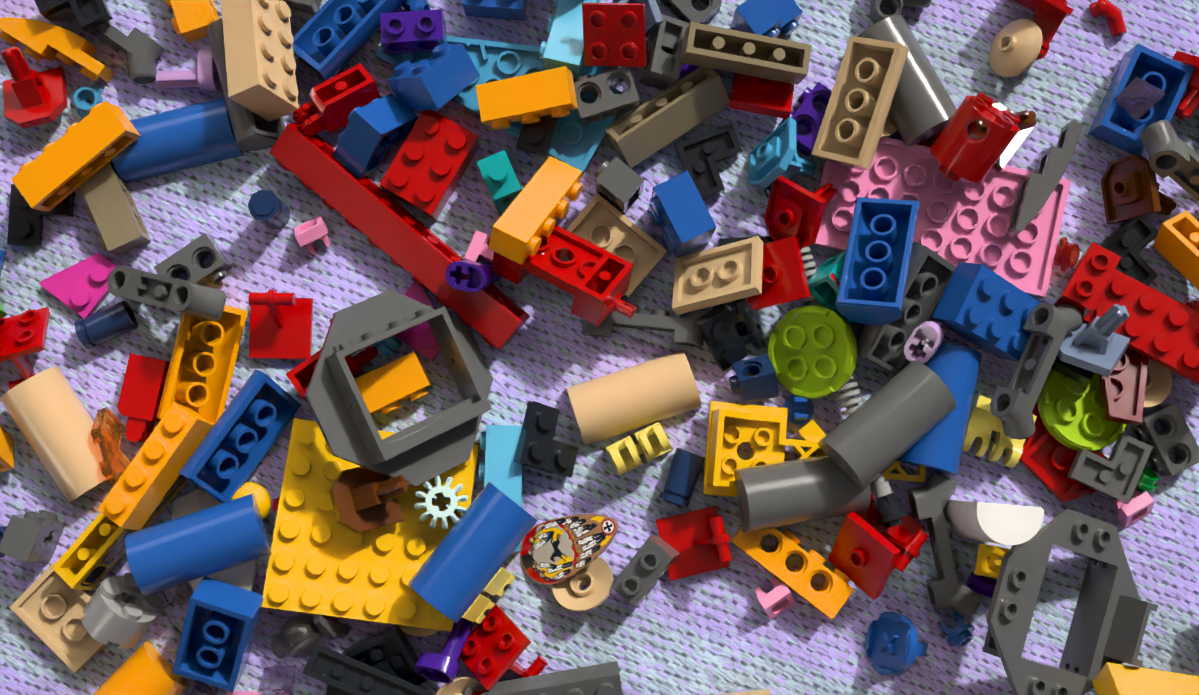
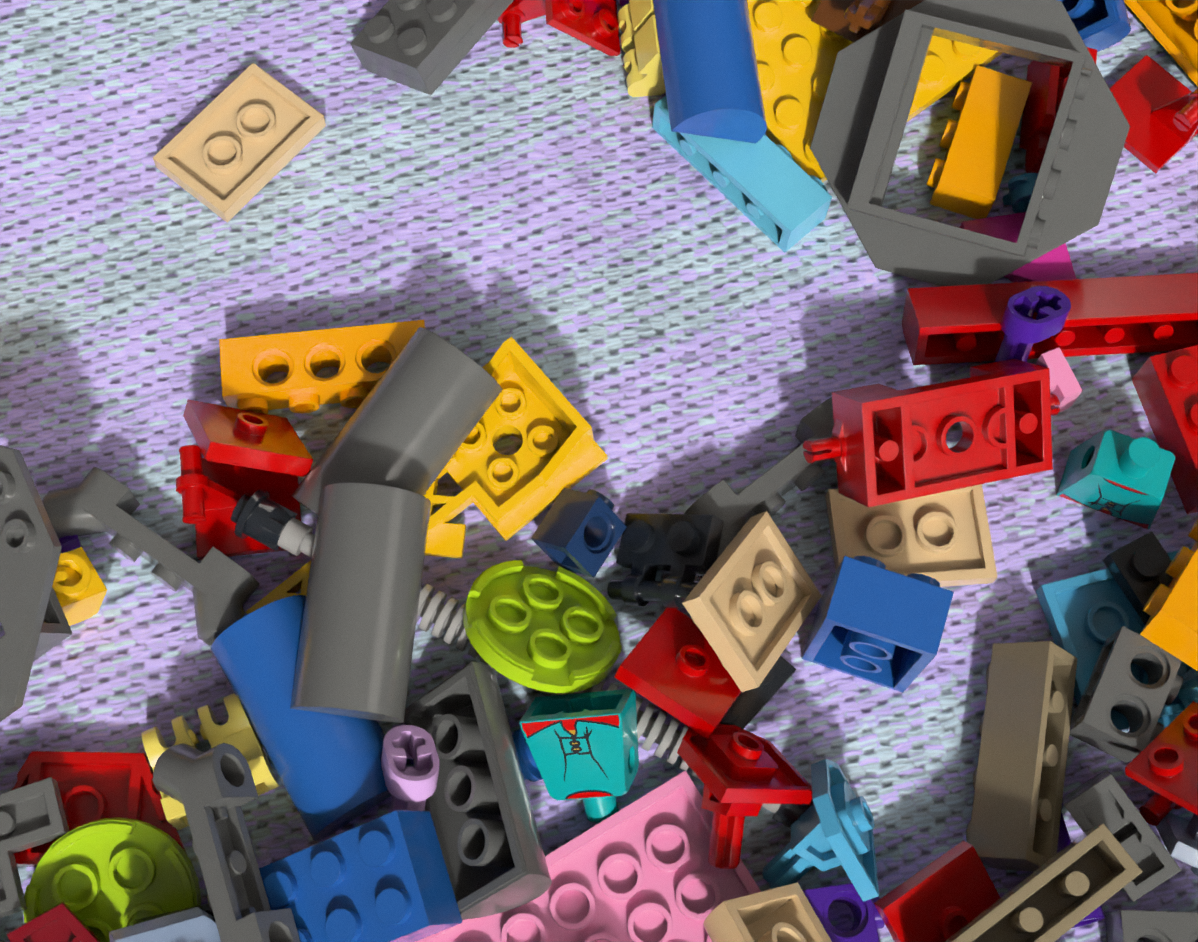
camera: 130 degrees right, 15 degrees down
(434, 511) = (806, 80): light aqua gear -> none
(536, 210) = (1048, 463): light orange brick -> none
(537, 445) = (748, 226): black plate -> none
(565, 546) = (609, 160): shield -> none
(569, 592) = (563, 135): tan dish -> none
(618, 184) = (988, 599): dark grey brick -> none
(626, 455) = (637, 327): light yellow legs -> none
(634, 397) = (701, 386): tan brick -> none
(645, 570) = (494, 208): dark grey brick -> none
(681, 478) = (552, 345): dark blue piece -> none
(698, 539) = (466, 294): red plate -> none
(702, 152) = (928, 753): black plate -> none
(776, 600) = (309, 307): bright pink tile -> none
(799, 409) = (487, 550): blue plate -> none
(877, 260) = (579, 804): blue brick -> none
(893, 644) = (111, 382): blue tile -> none
(960, 635) = (41, 468): blue plate -> none
(994, 521) = (113, 601): white brick -> none

